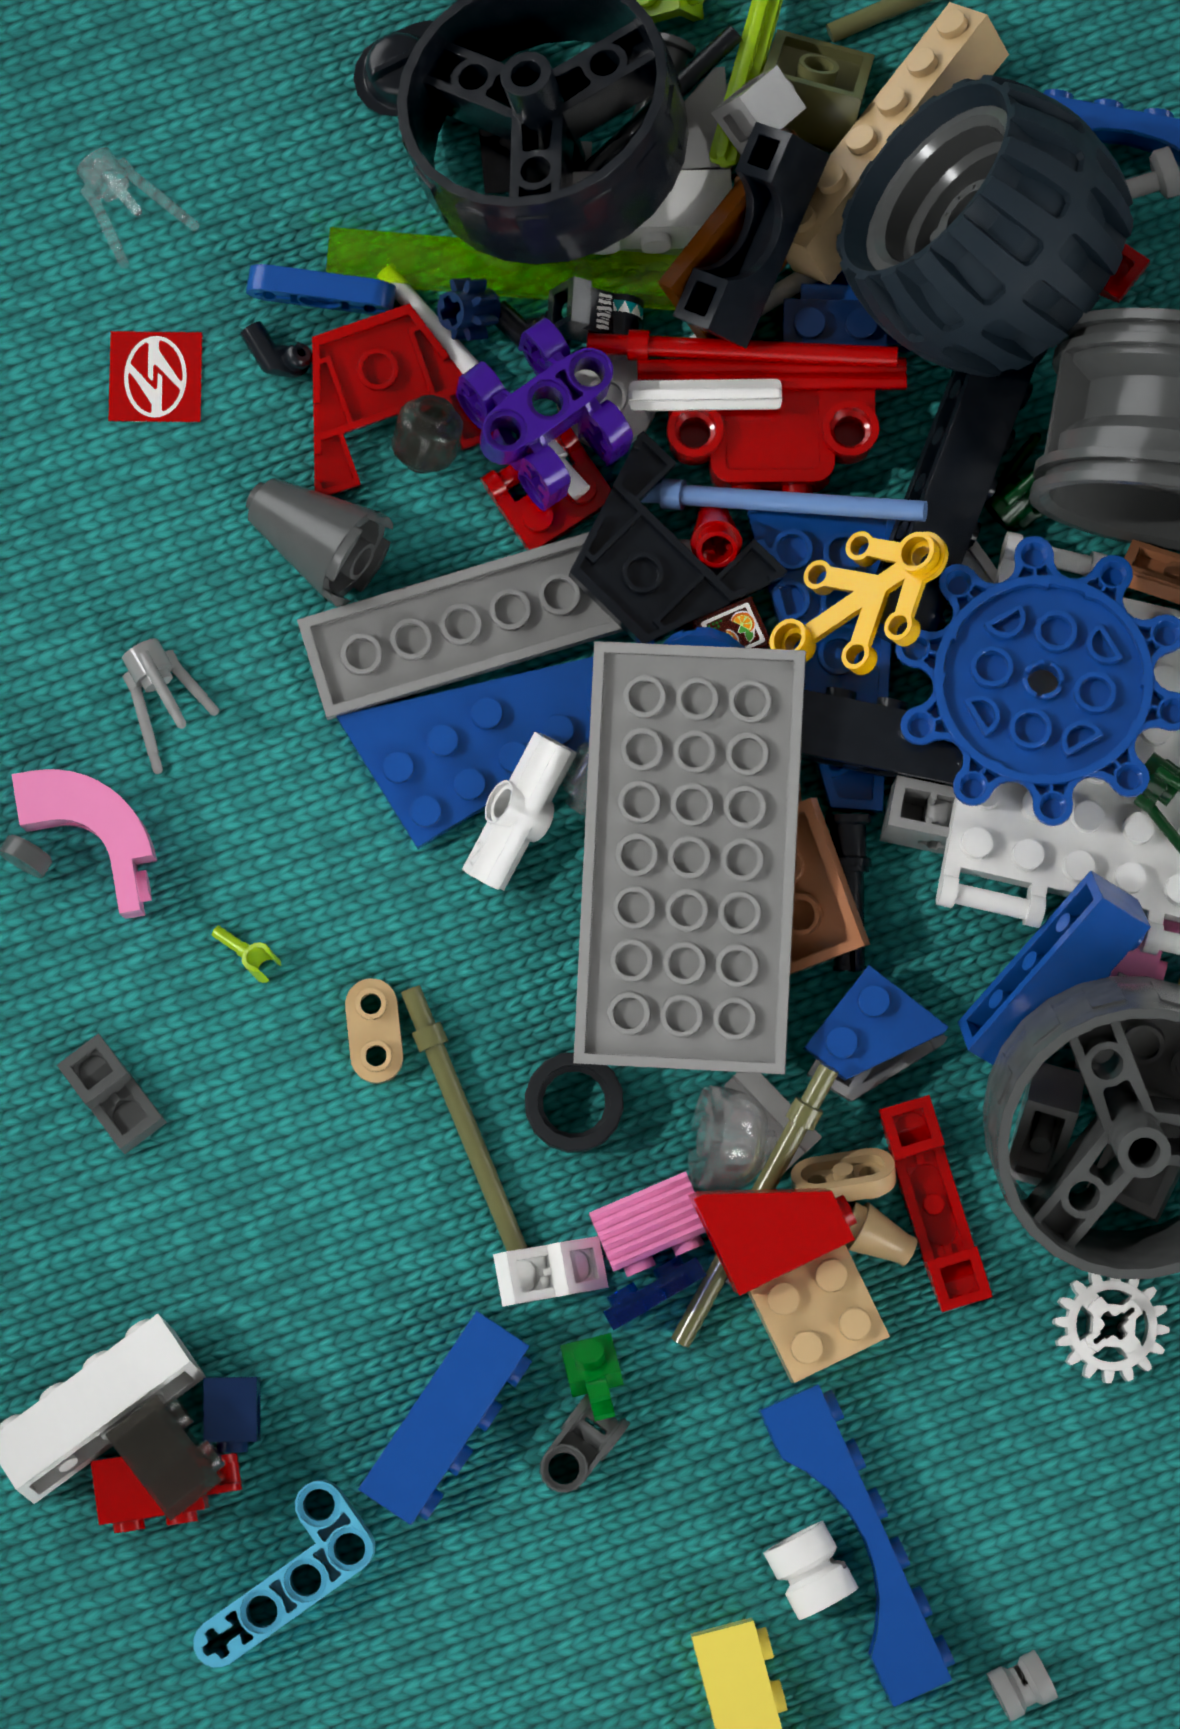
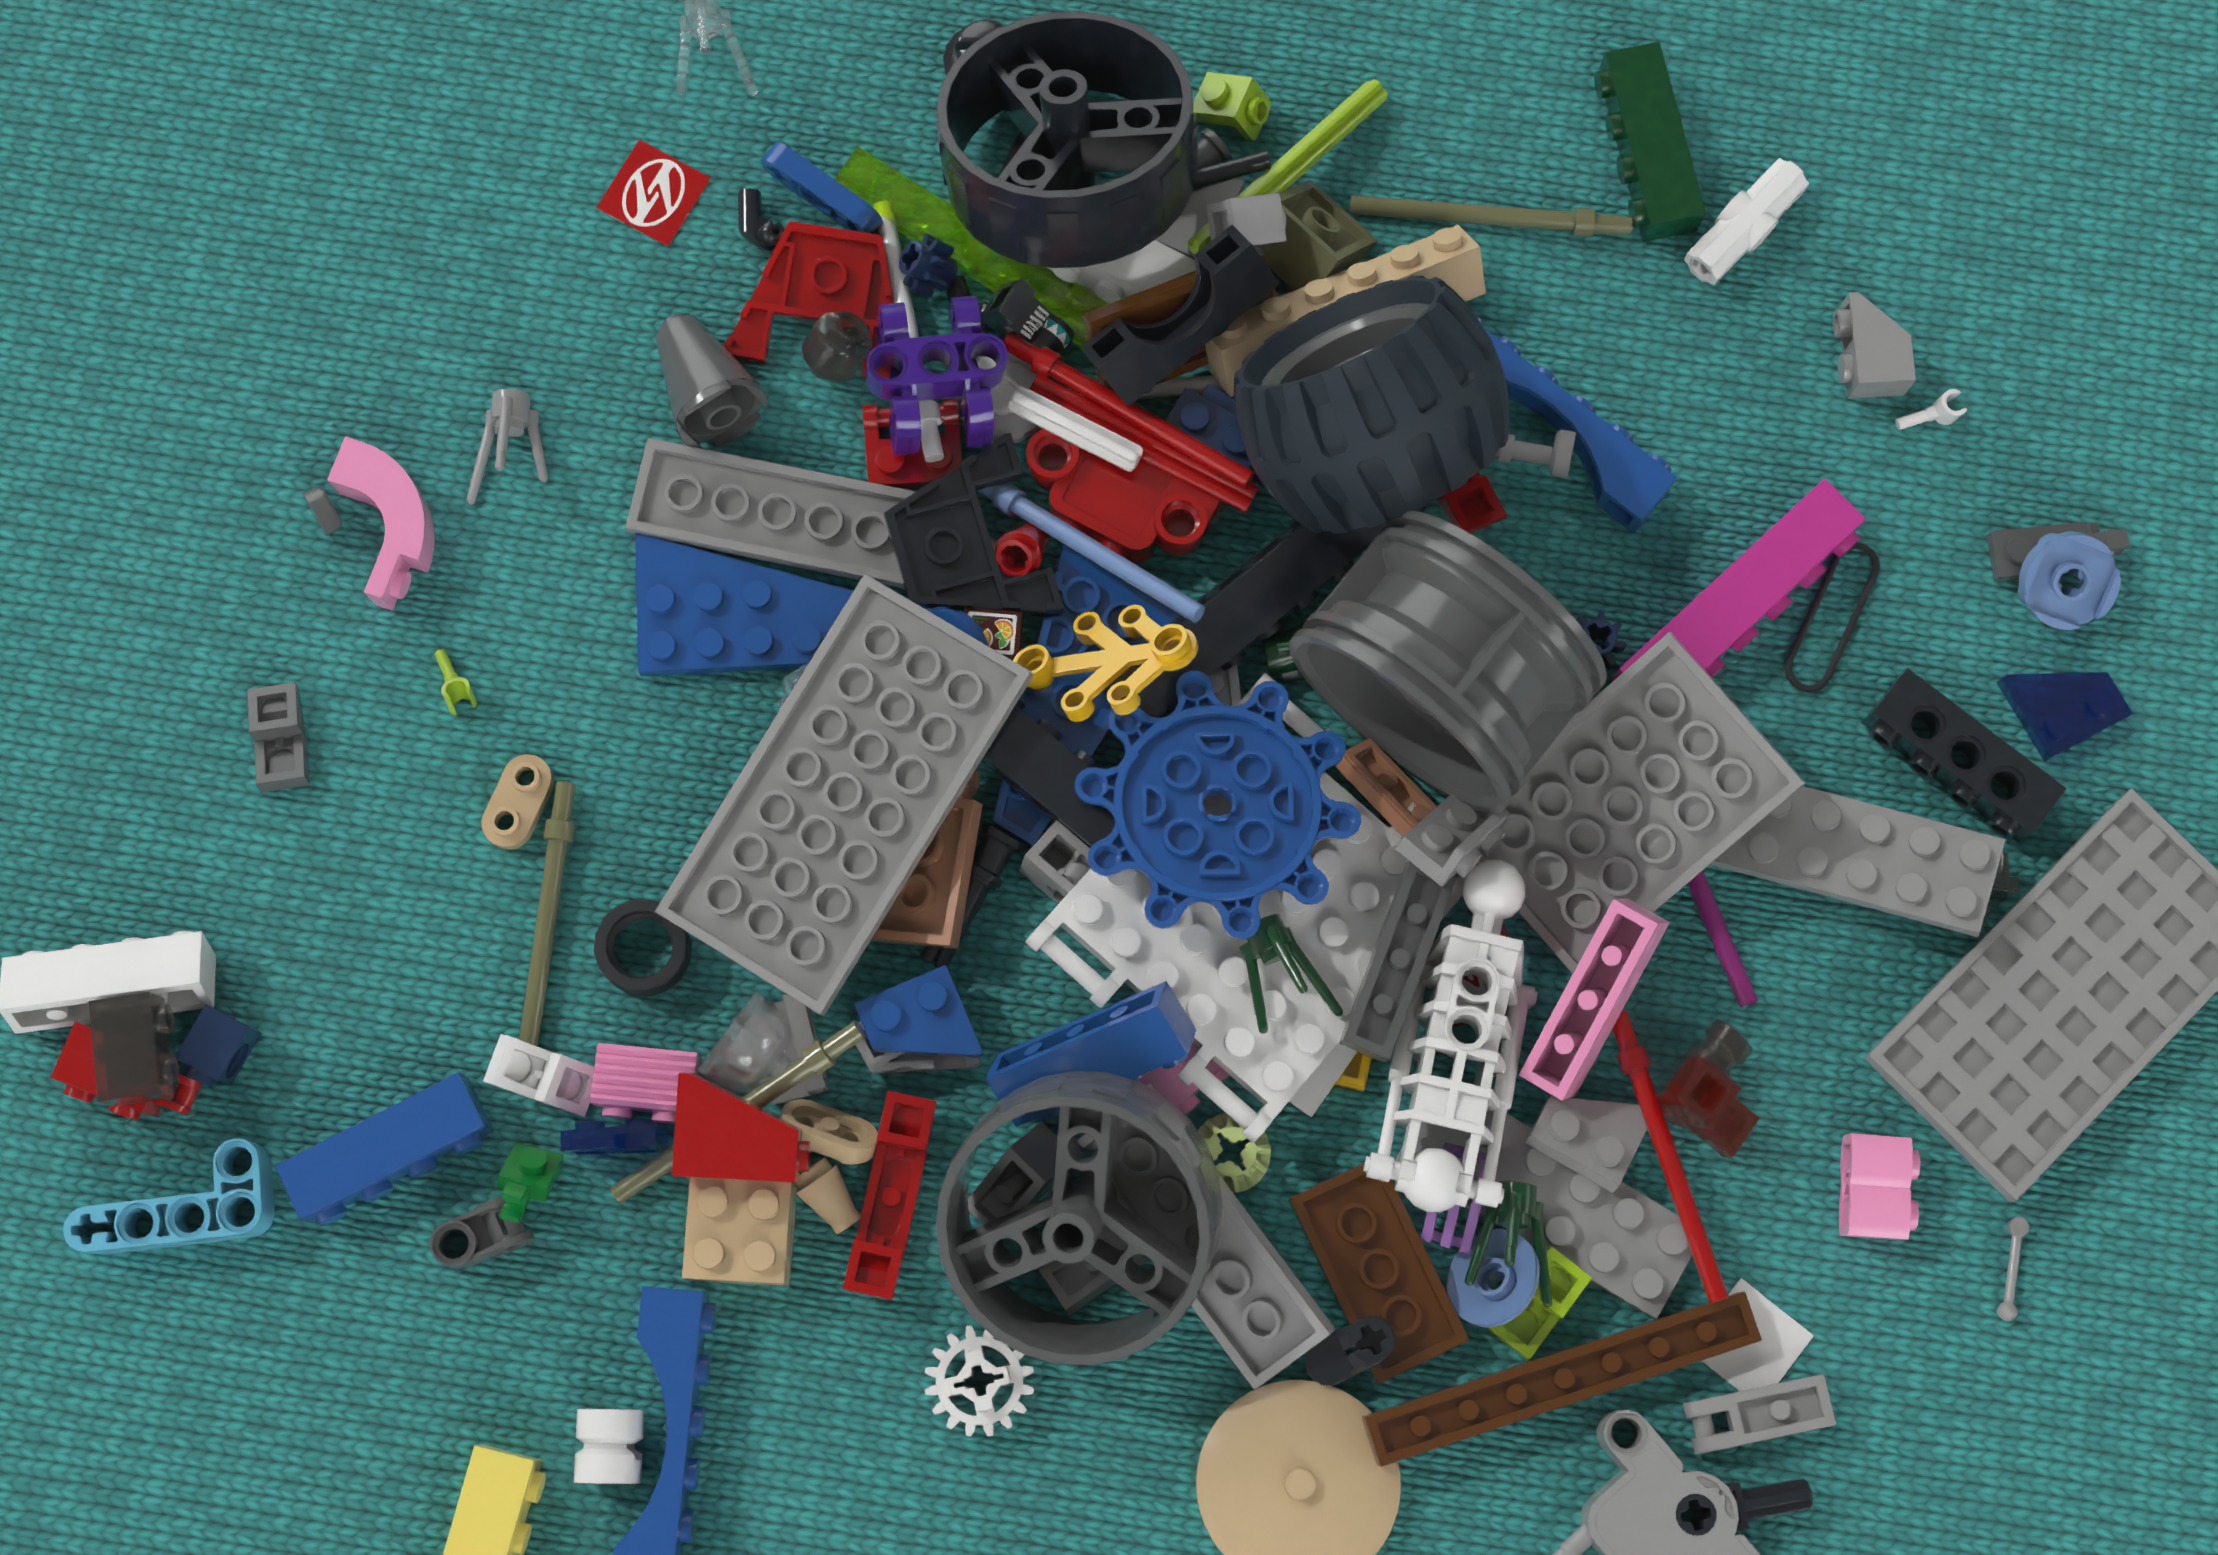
camera: 30 degrees right, 5 degrees down
(519, 811) = (734, 685): white piece -> none

